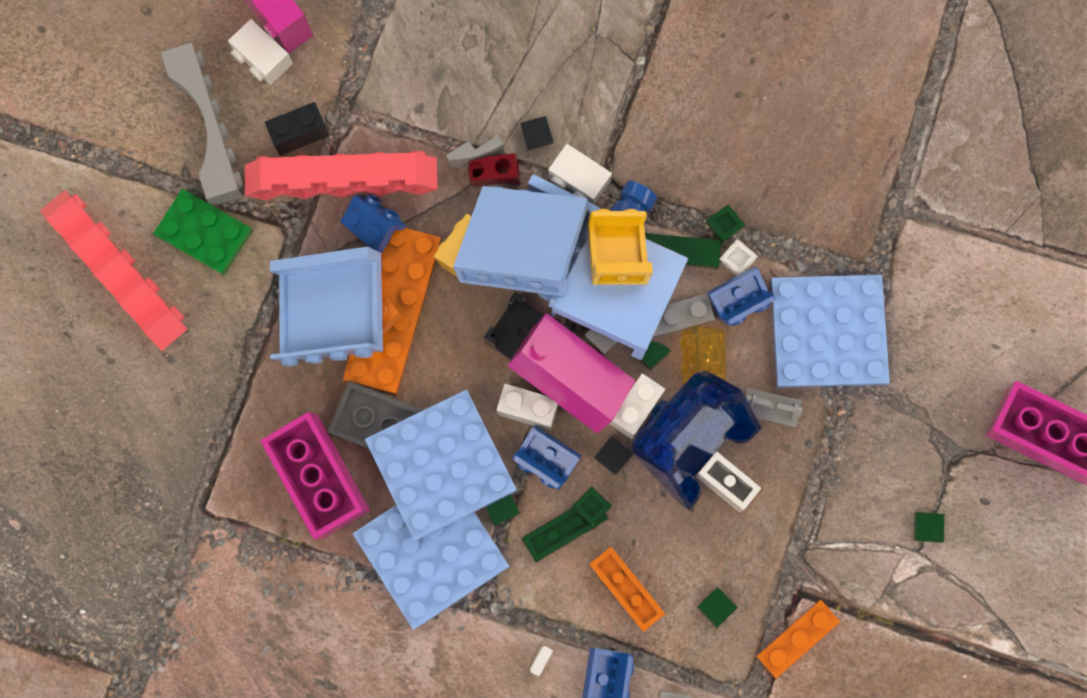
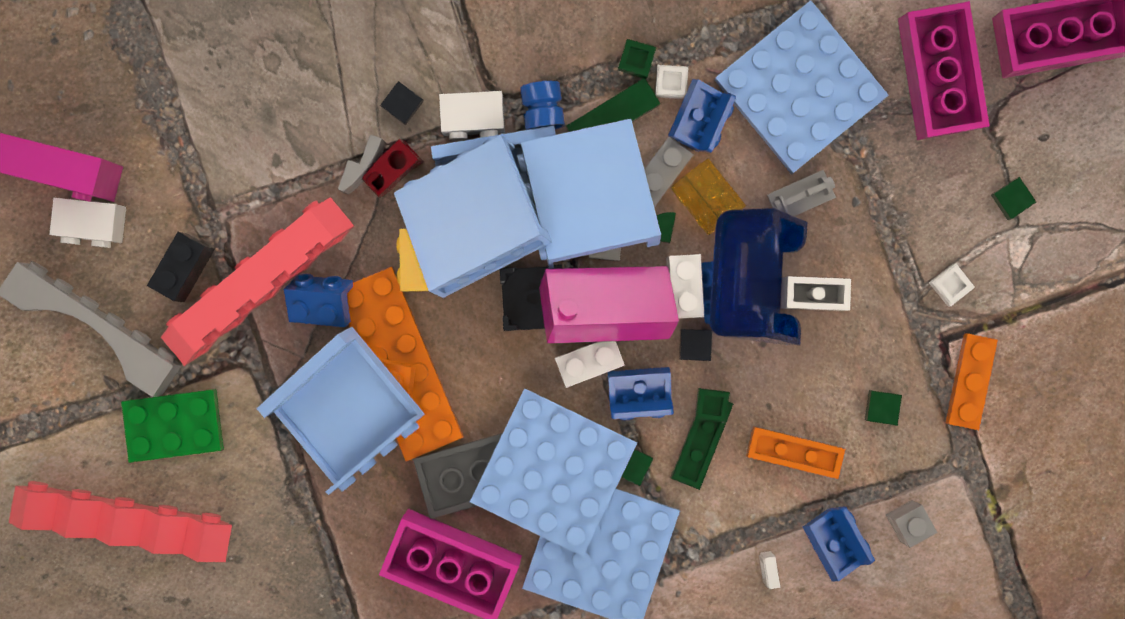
camera: 40 degrees left, 10 degrees up
(618, 247) = (563, 159): yellow panel -> none
(836, 556) = (951, 284): none -> white tile
(941, 394) = (943, 70): none -> dark pink brick

